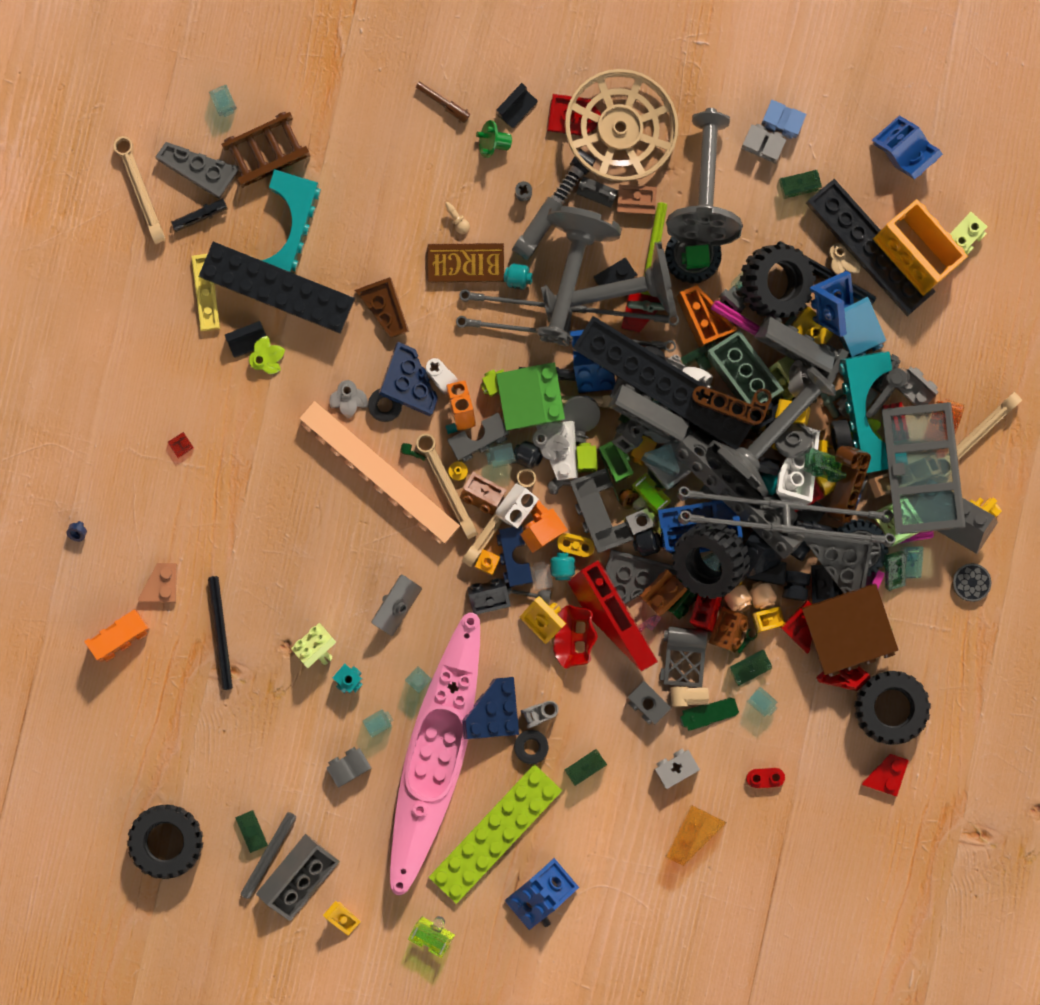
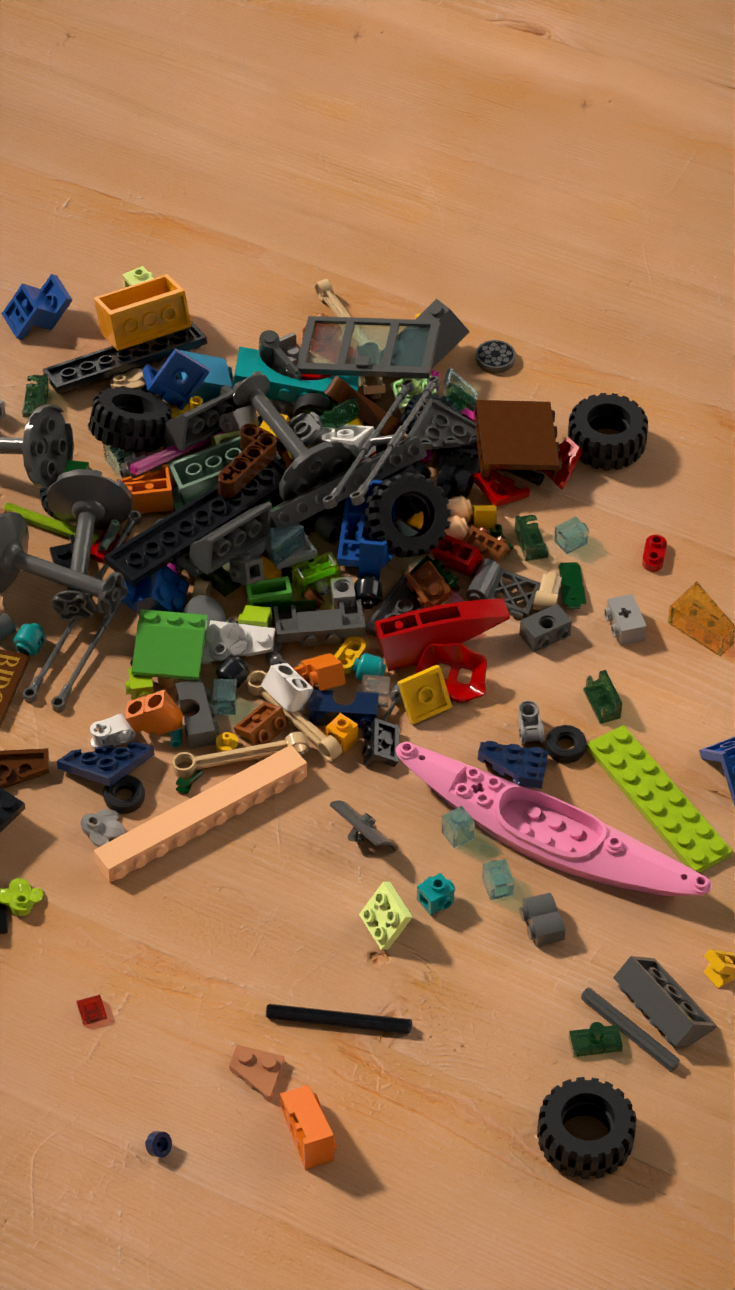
camera: 75 degrees left, 35 degrees down
(888, 775) = (677, 457): red wing -> none

